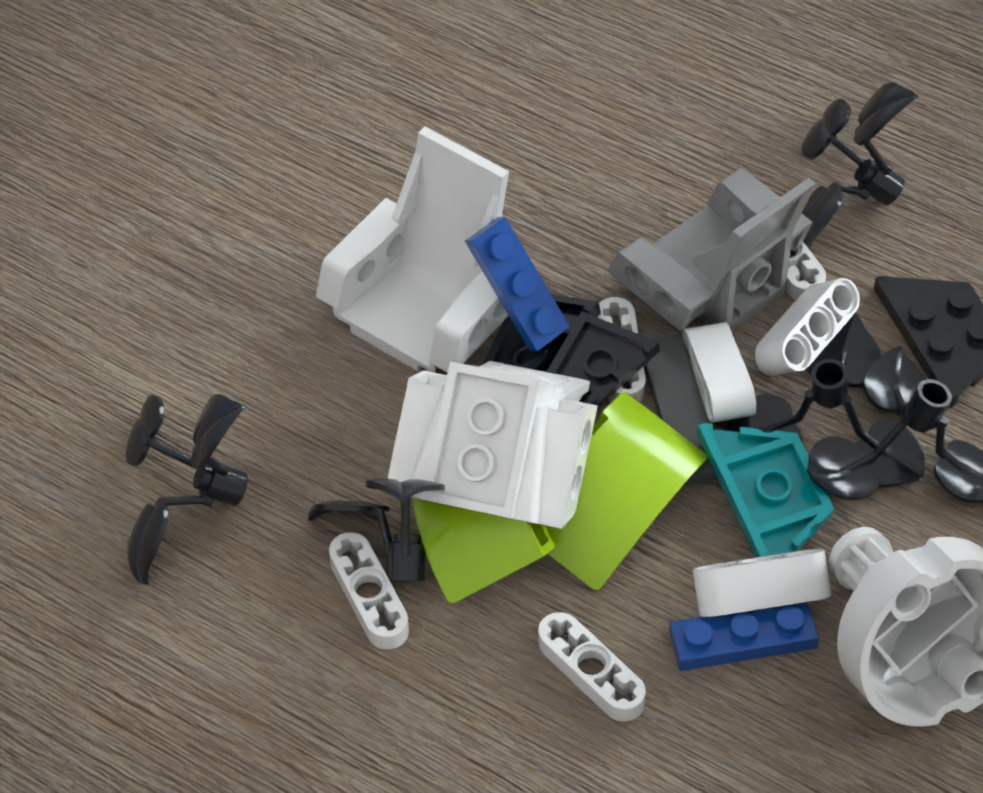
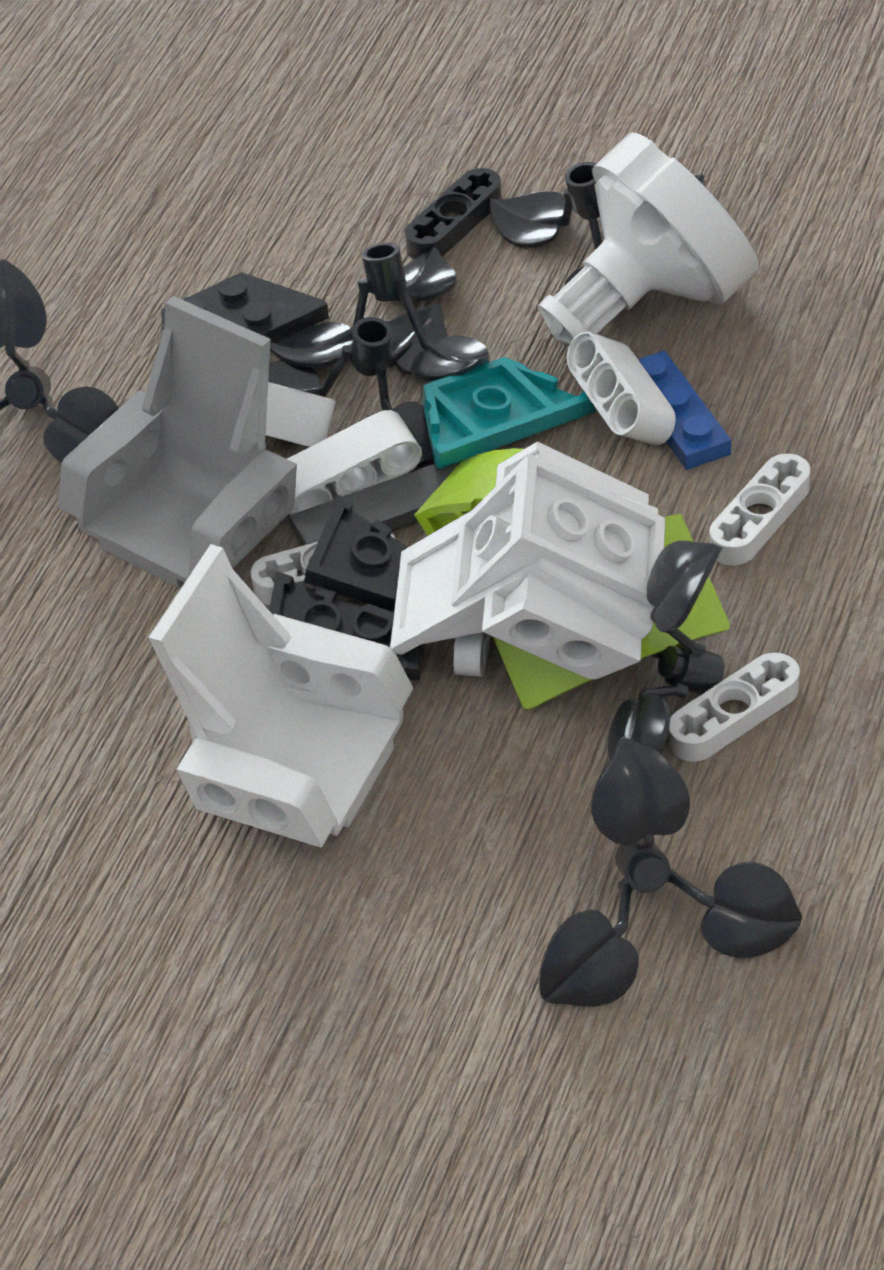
camera: 100 degrees left, 5 degrees down
(517, 283) = (309, 594): blue plate -> none

